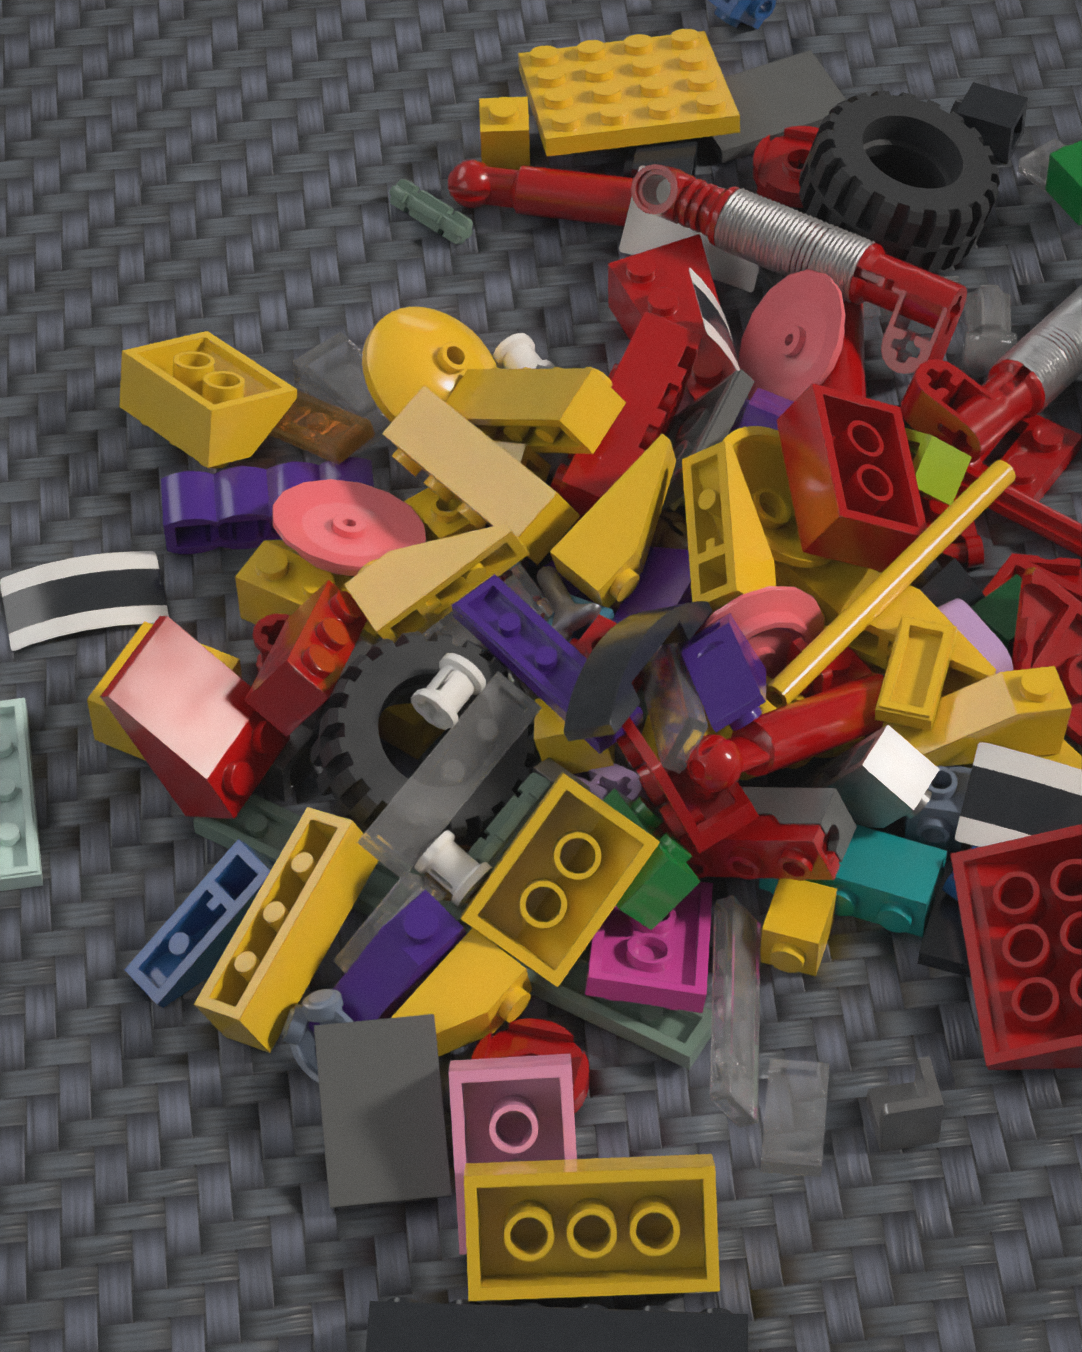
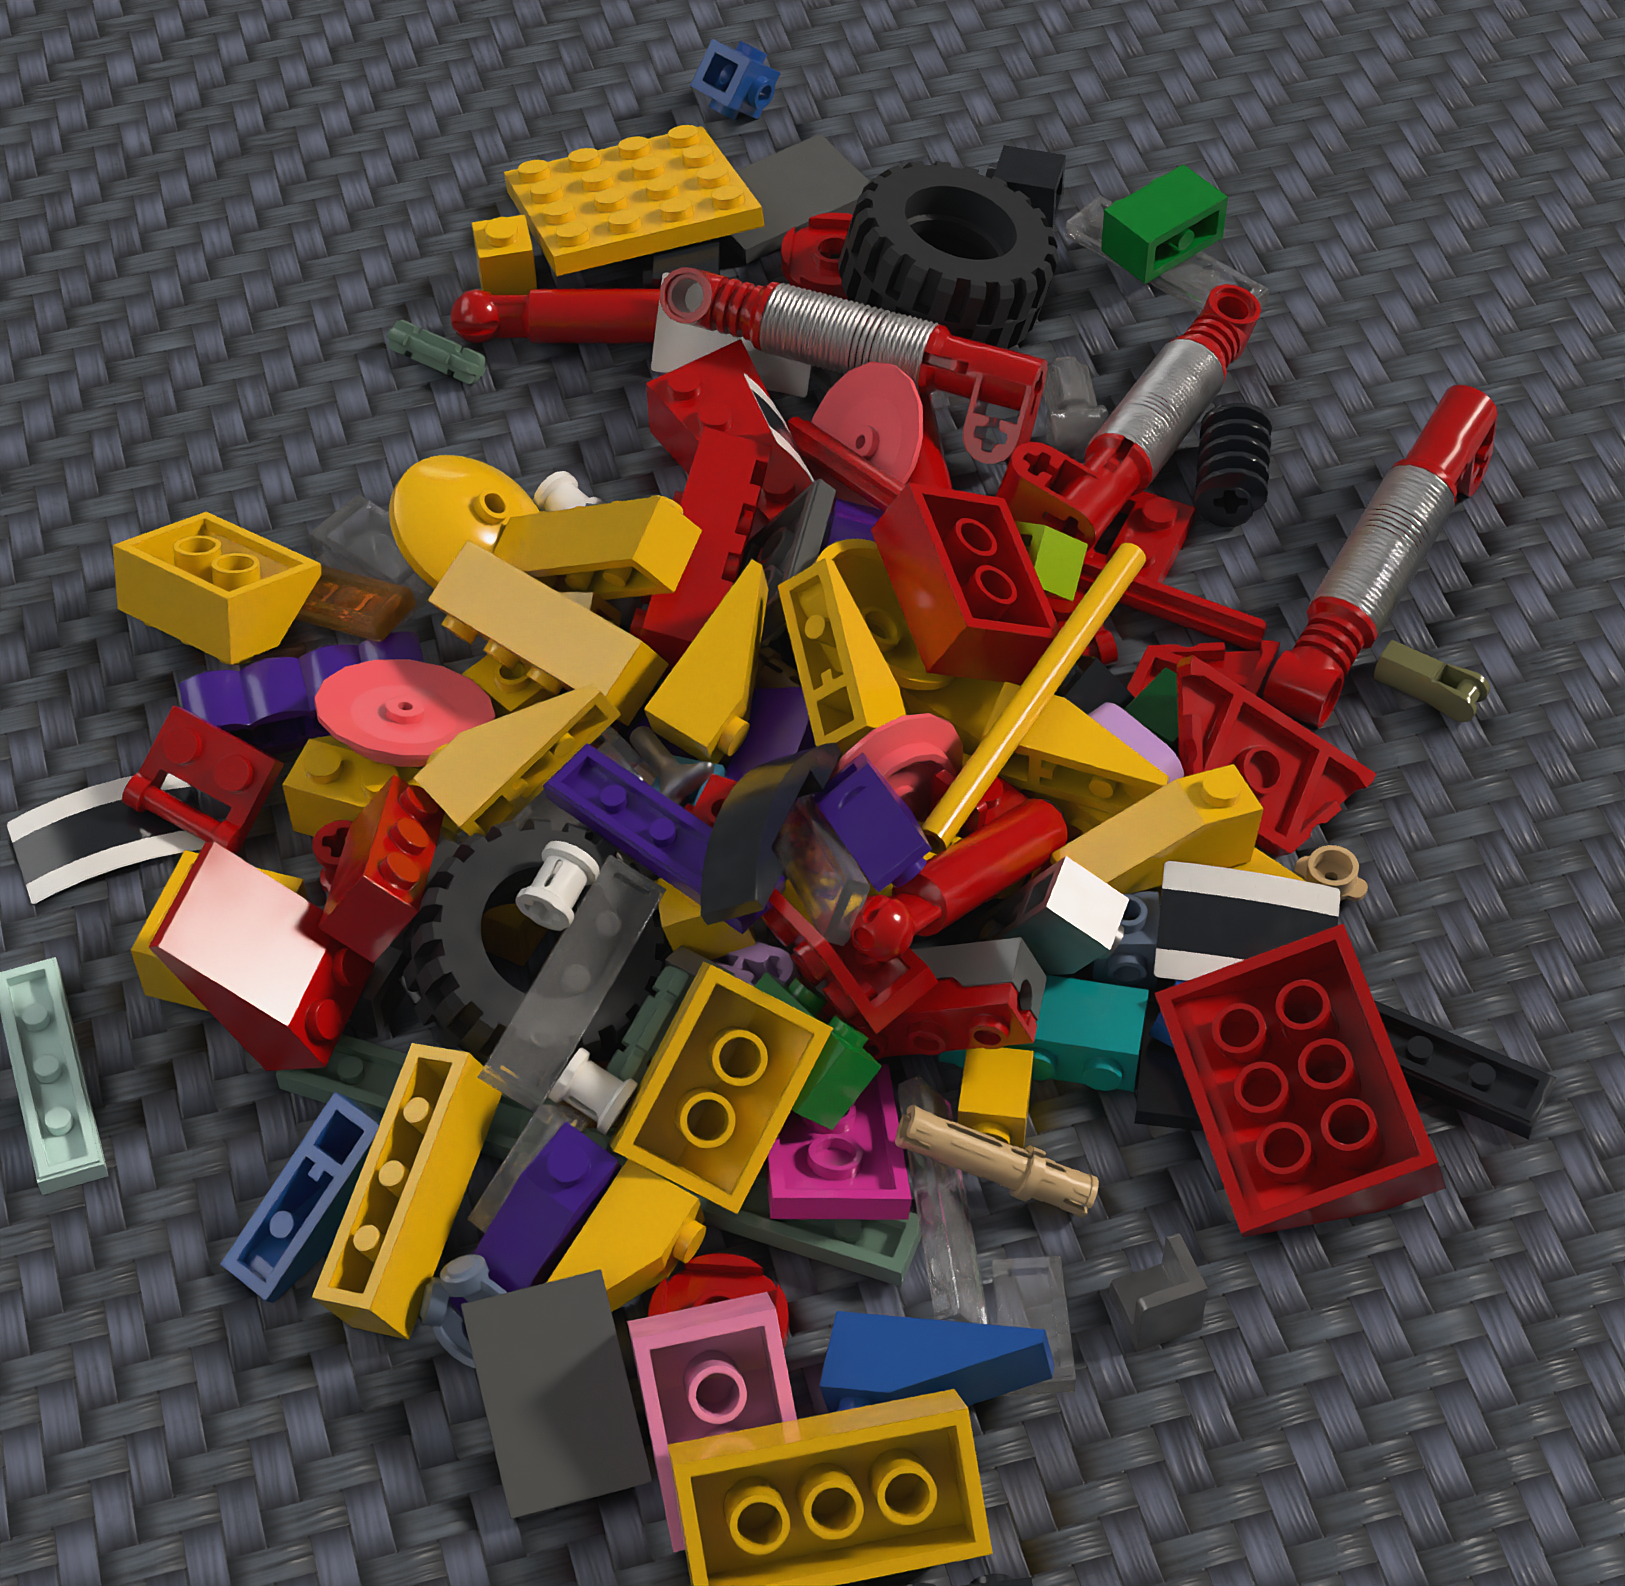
camera: 10 degrees left, 0 degrees up
(178, 550) = (213, 764): none -> red plate
(677, 1122) = (904, 1357): none -> blue slope
(768, 355) = (844, 464): none -> red axle
(798, 982) = (1018, 1169): none -> tan pin
(916, 673) = (1081, 793): yellow tile -> none

